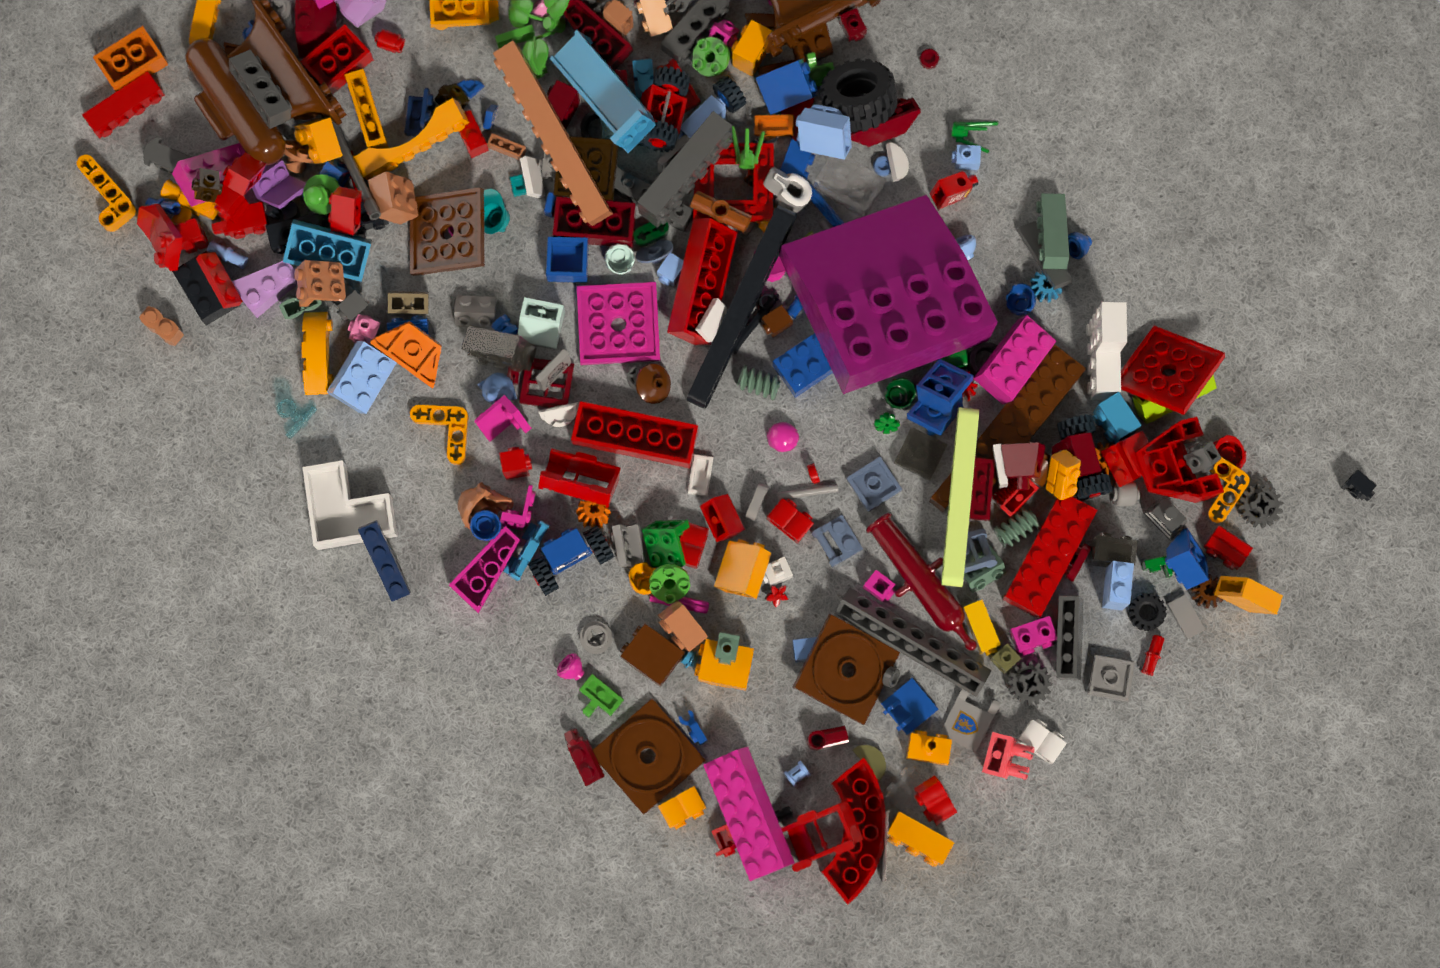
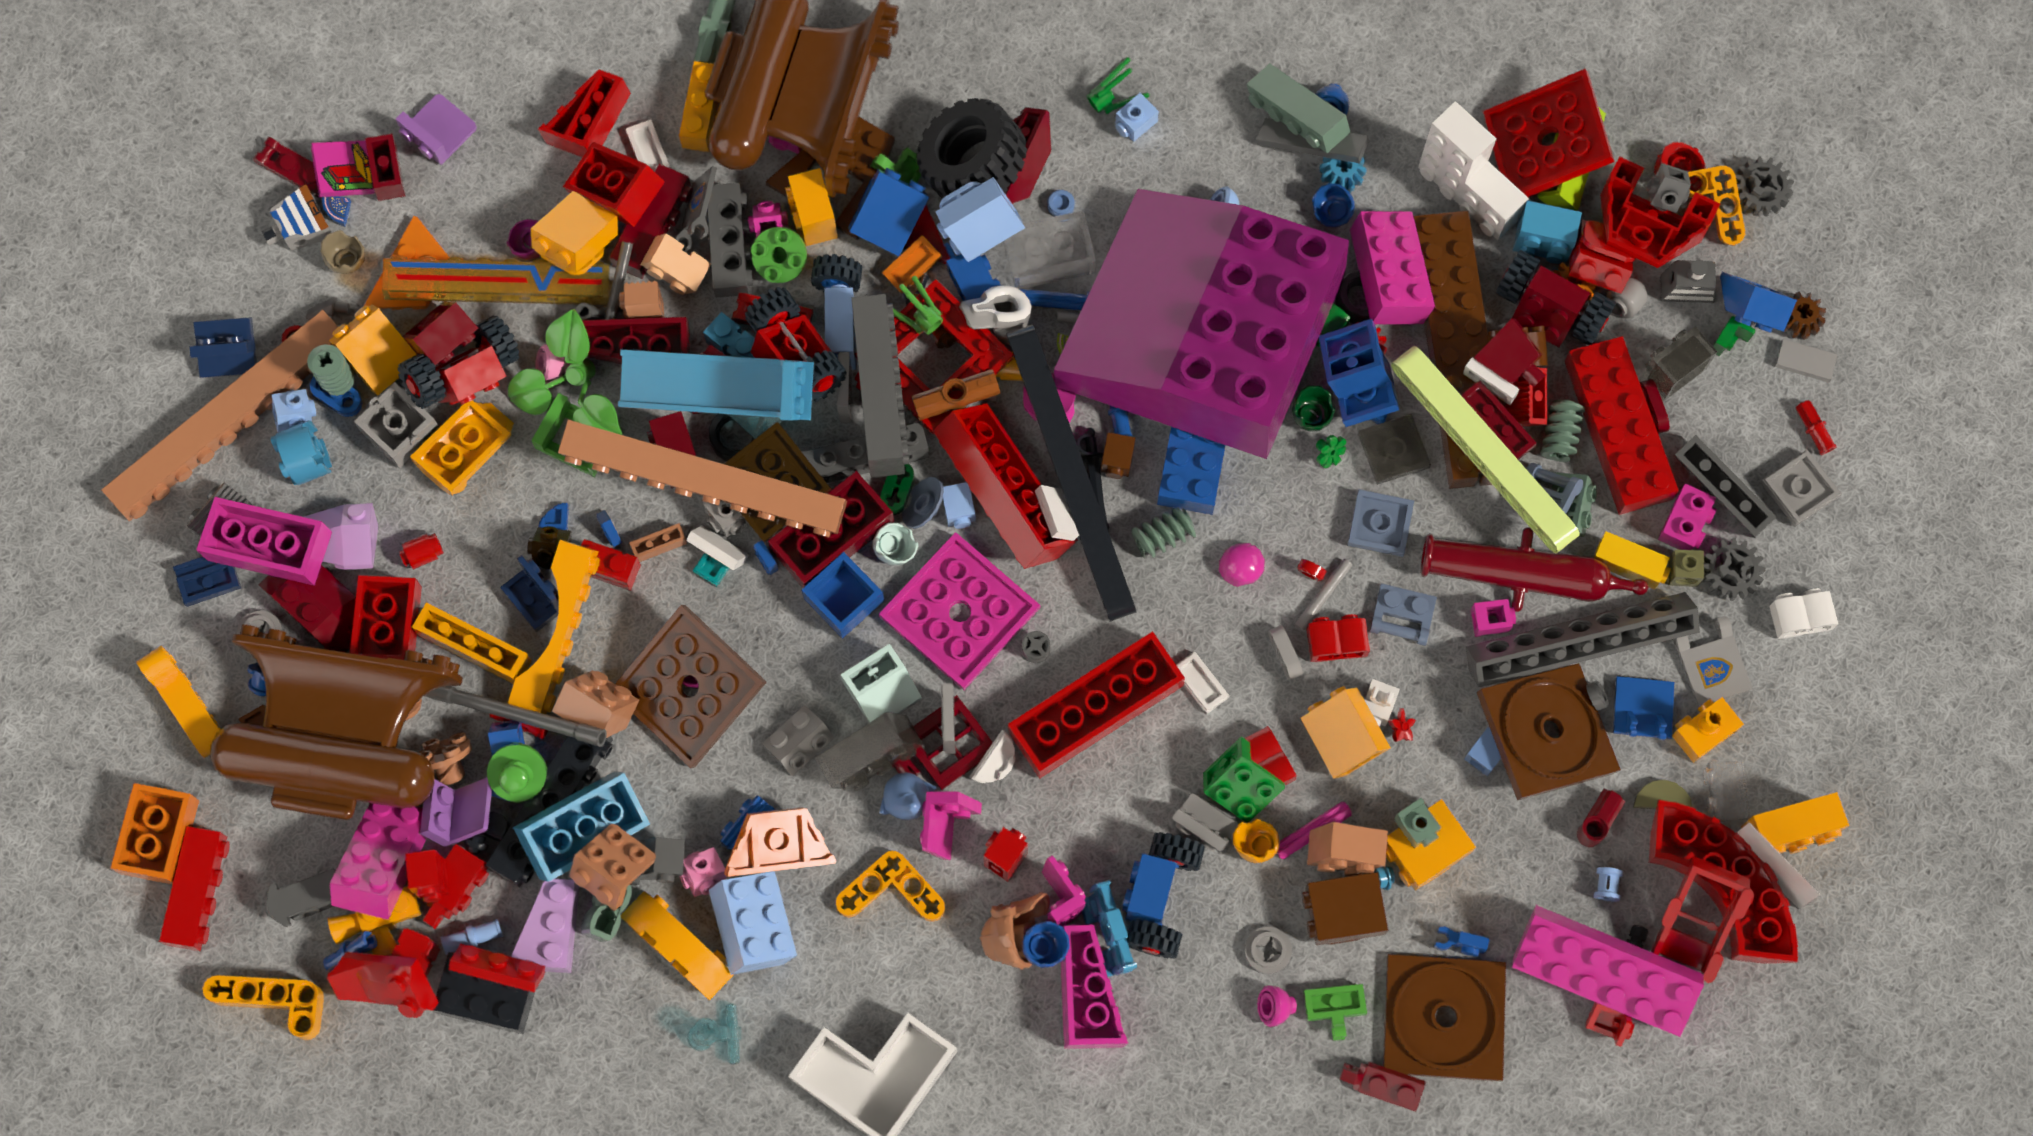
camera: 45 degrees left, 5 degrees down
(162, 326) = (469, 1082): nougat brick -> none
(207, 185) = (391, 875): dark brown brick -> none
(243, 173) = (414, 828): red brick -> none
(251, 77) = (383, 737): dark grey brick -> none
(320, 138) = (456, 715): light orange brick -> none
(345, 210) = (562, 763): red brick -> none
(384, 560) = (974, 1088): dark blue plate -> none
(408, 302) = (721, 798): dark tan brick -> none
(495, 214) = (718, 616): teal piece -> none
(504, 325) = (842, 724): blue wheel -> none
(583, 465) = (1077, 786): red piece -> none
(586, 515) = (1123, 823): orange gear -> none
(647, 387) = (1059, 636): reddish brown dish -> none
(669, 583) = (1289, 818): bright green plate -> none
(682, 807) = (1534, 1033): light orange brick -> none
(722, 518) = (1270, 702): red brick -> none
(852, 33) = (888, 102): dark red brick -> none
(898, 161) = (1071, 185): white tile -> none
(929, 58) = (996, 57): dark red tile -> none
(934, 800) = (1768, 774): red brick -> none
(952, 189) = (1157, 154): red torso -> none
(1000, 756) = (1778, 661): coral brick -> none
(1063, 475) = (1560, 331): light orange brick -> none
(1117, 585) = (1718, 389): light blue brick -> none
(1156, 603) = (1773, 376): black tyre -> none
(1227, 548) = (1775, 256): red brick -> none
(1248, 595) = (1847, 278): light orange brick -> none
(1360, 486) = (1831, 79): black brick -> none

